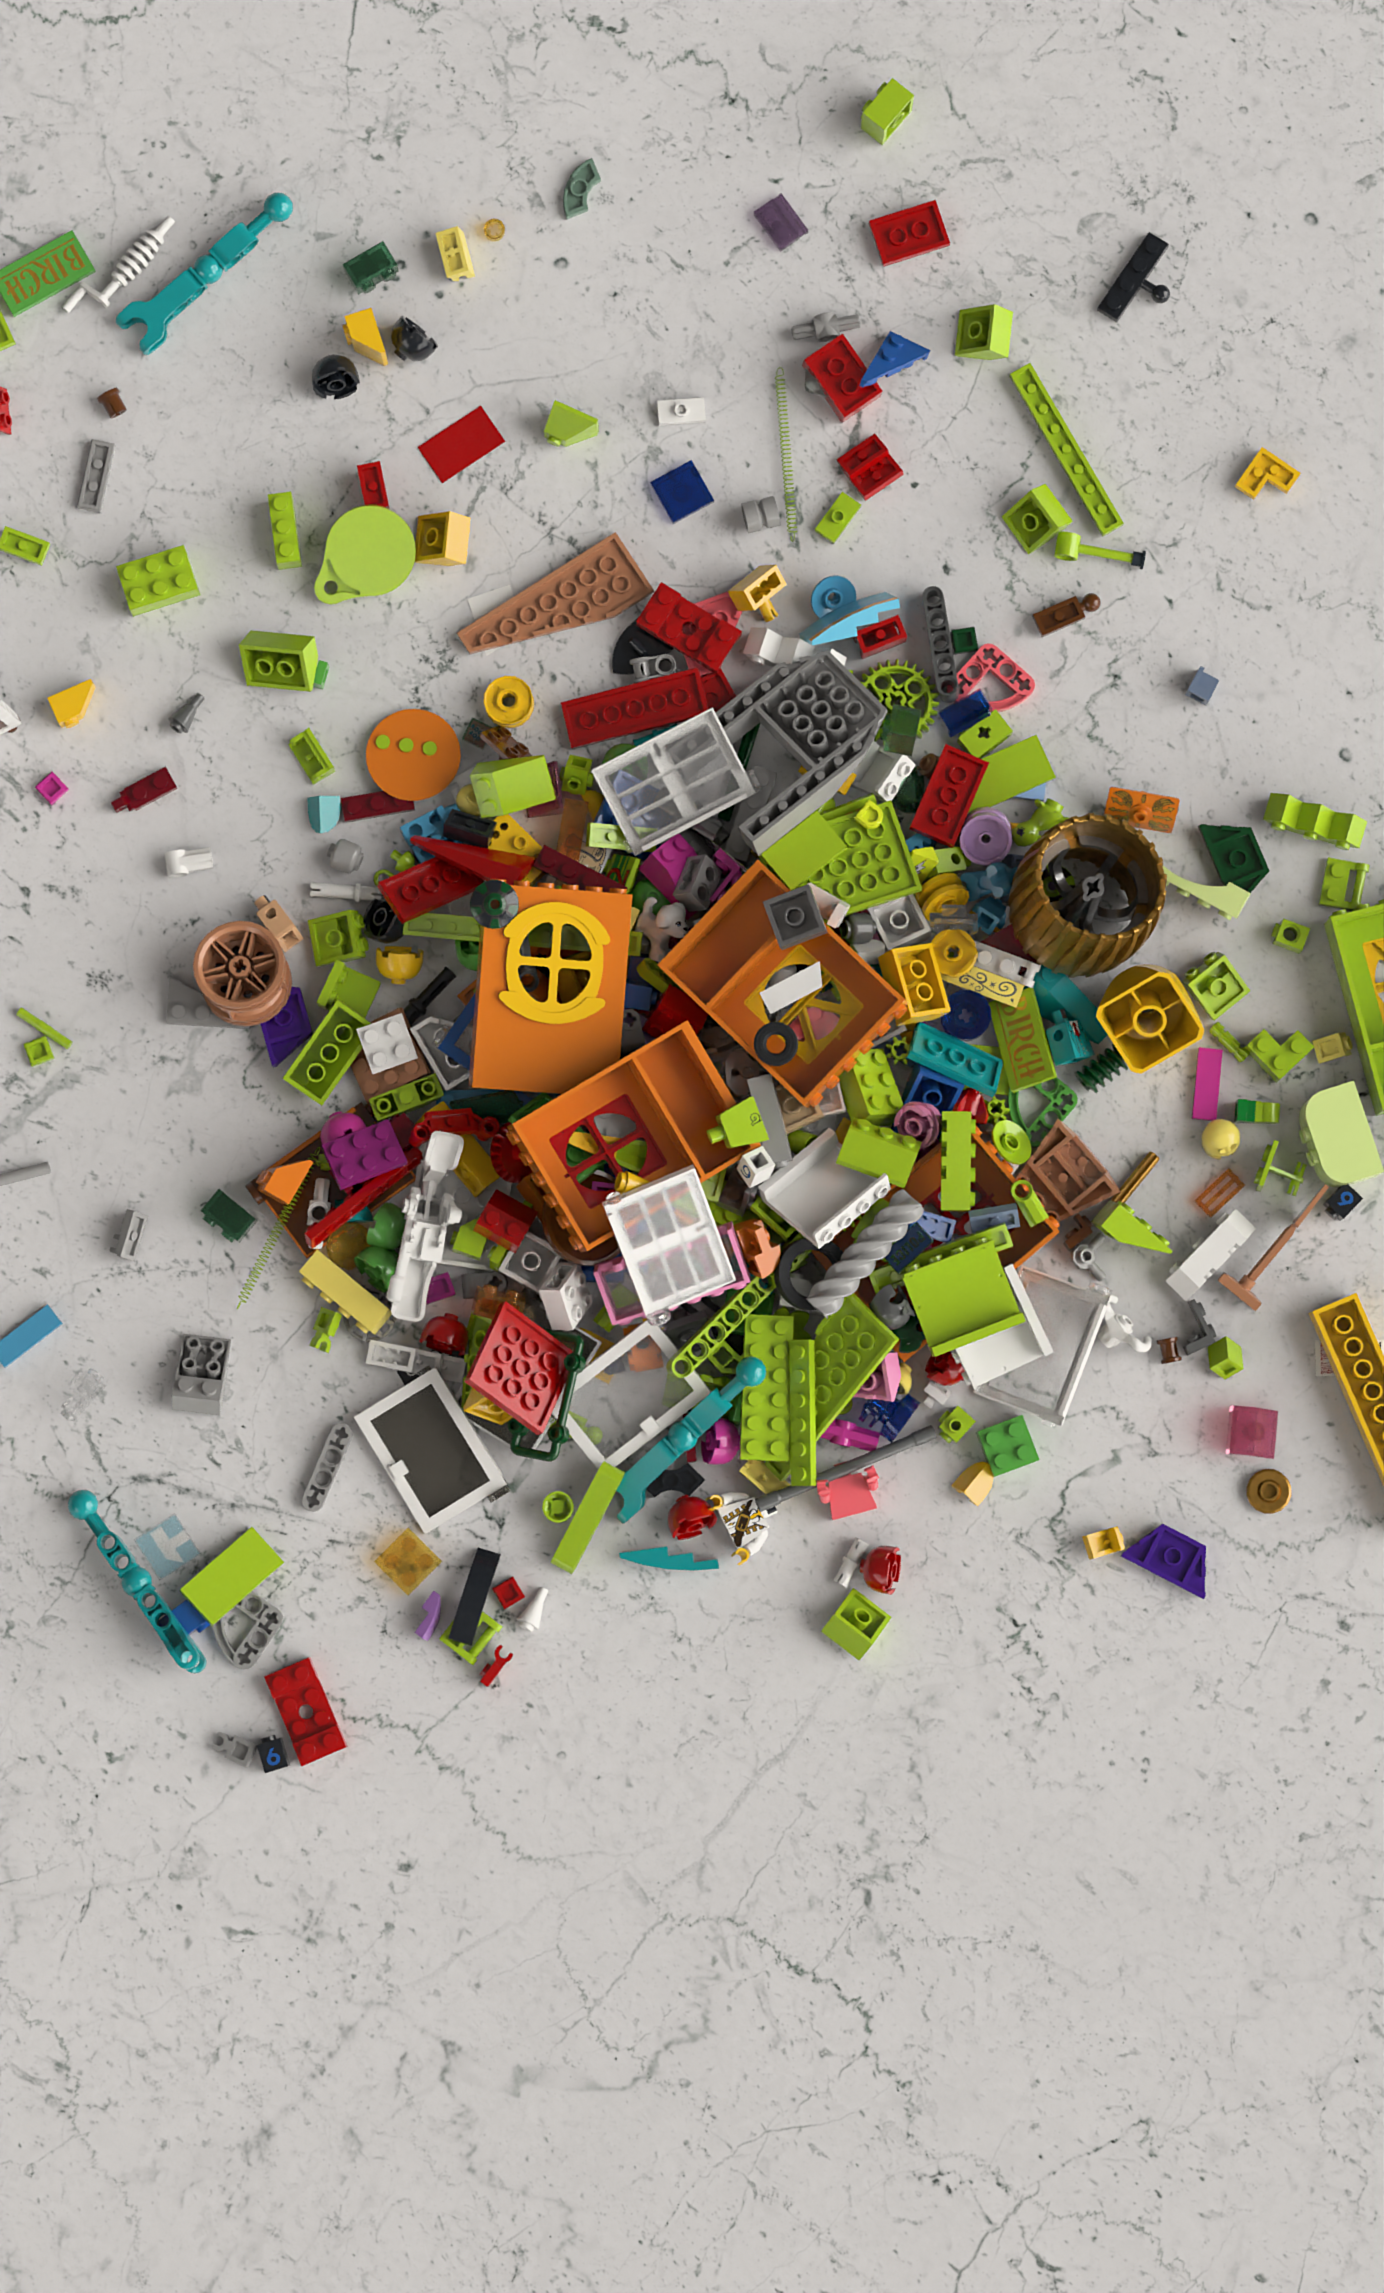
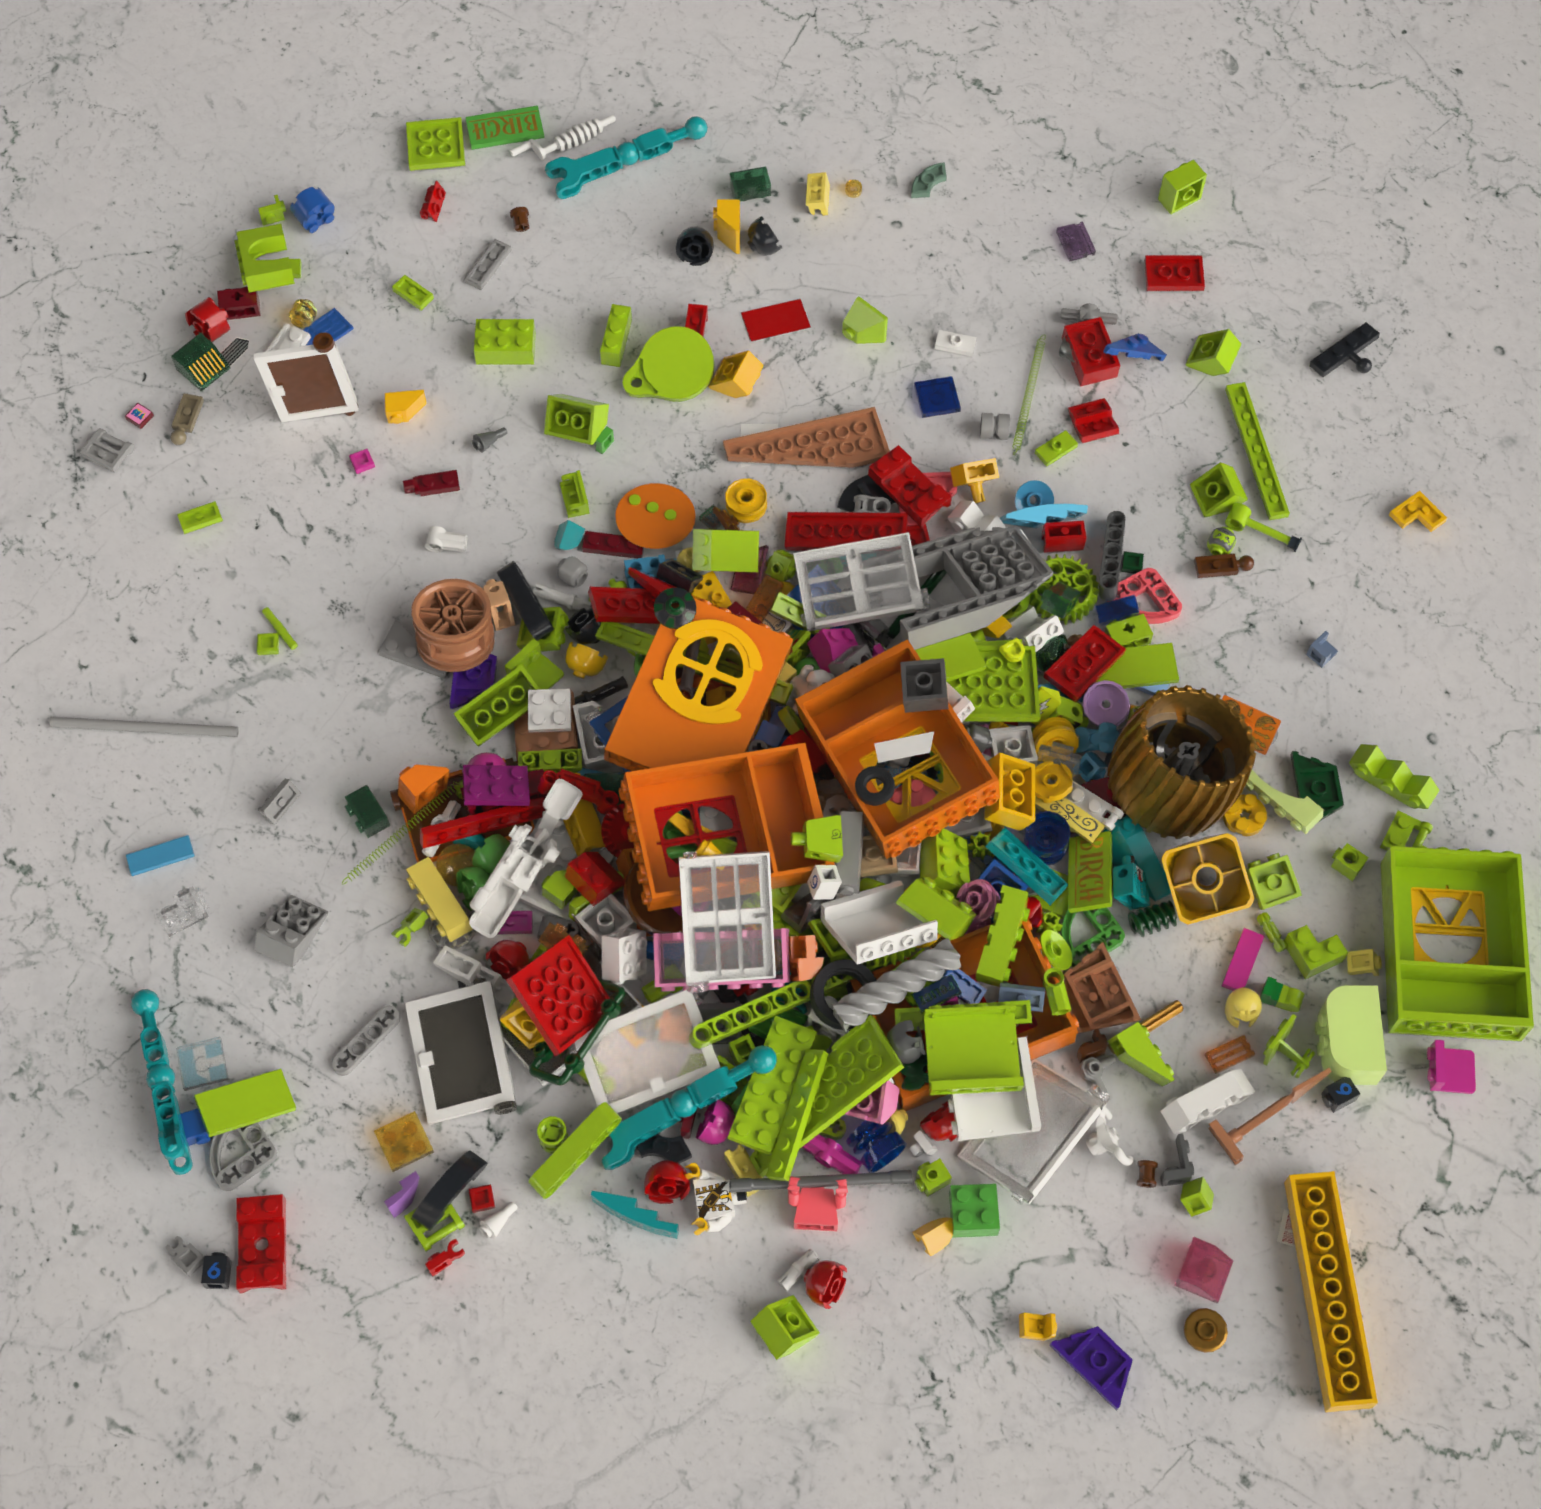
camera: 20 degrees right, 20 degrees down
(308, 913) = (525, 601): none -> black beam
(1057, 584) = (1221, 541): none -> head
(1181, 916) = (1257, 817): none -> yellow plate

